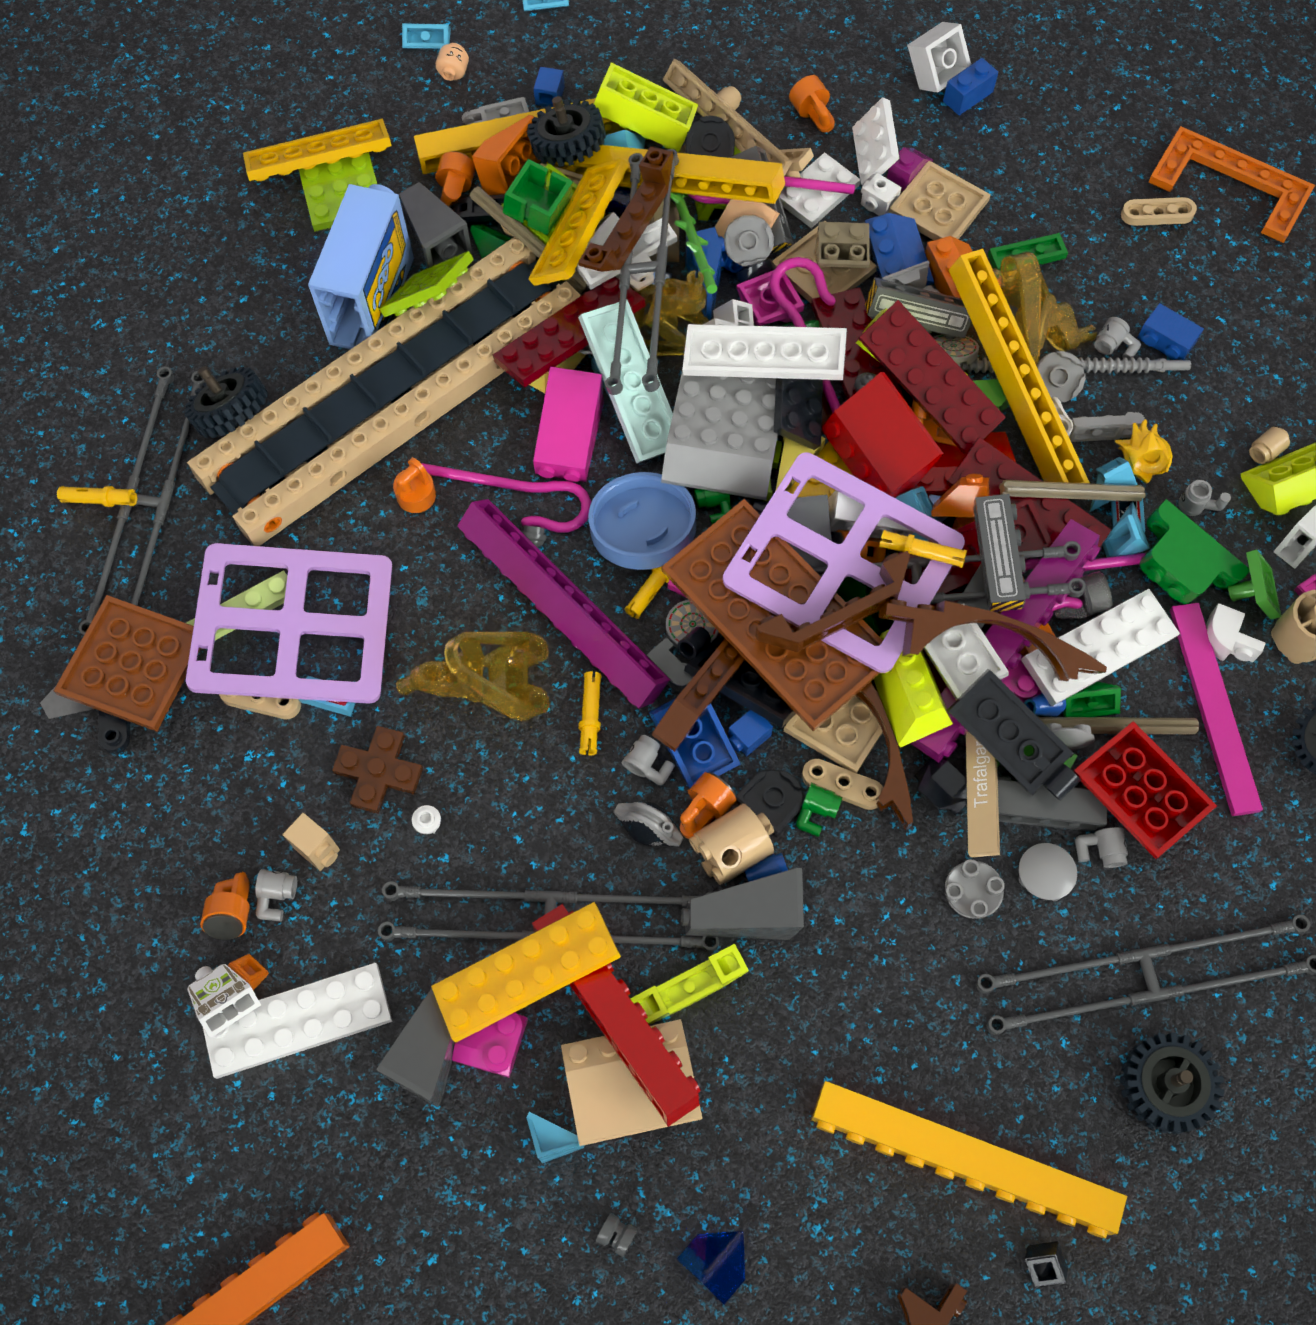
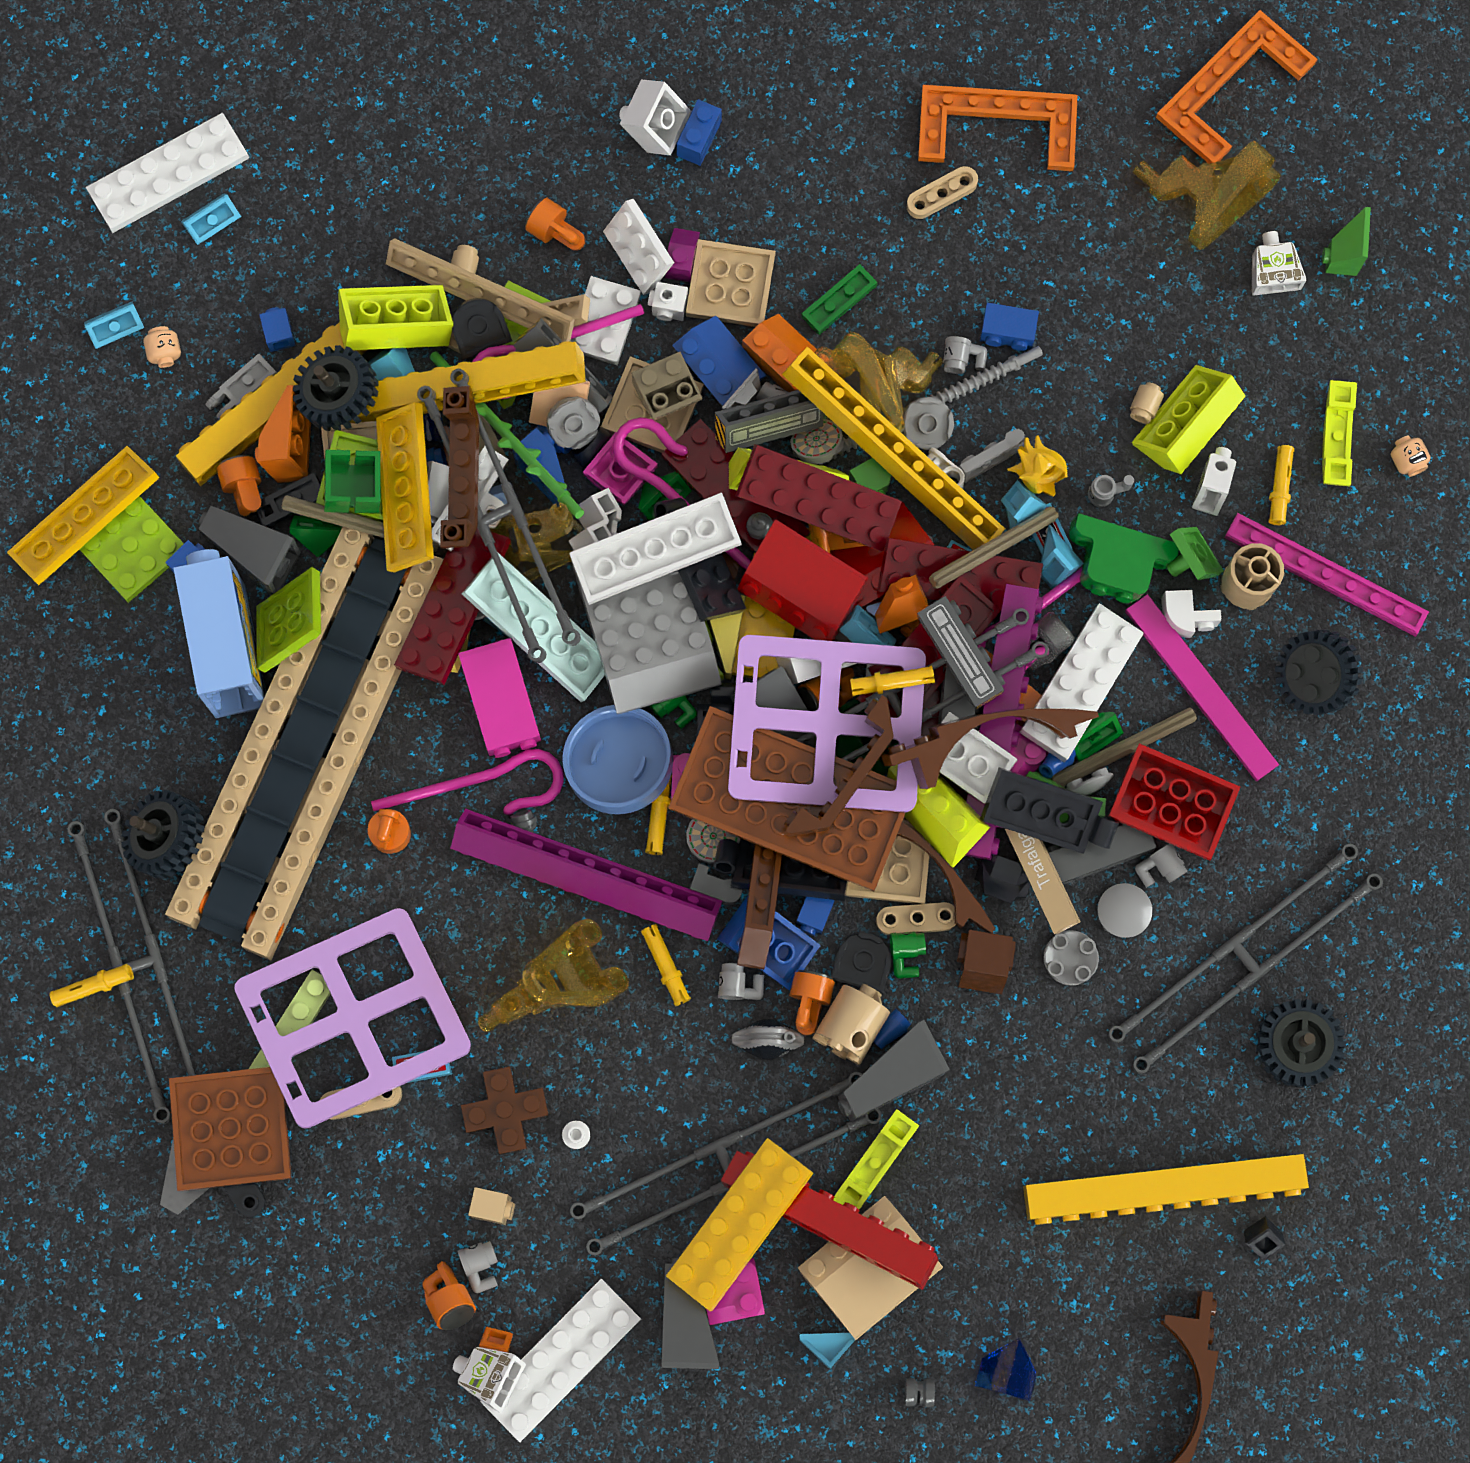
camera: 30 degrees left, 10 degrees up
(889, 850) = (985, 961): none -> reddish brown plate

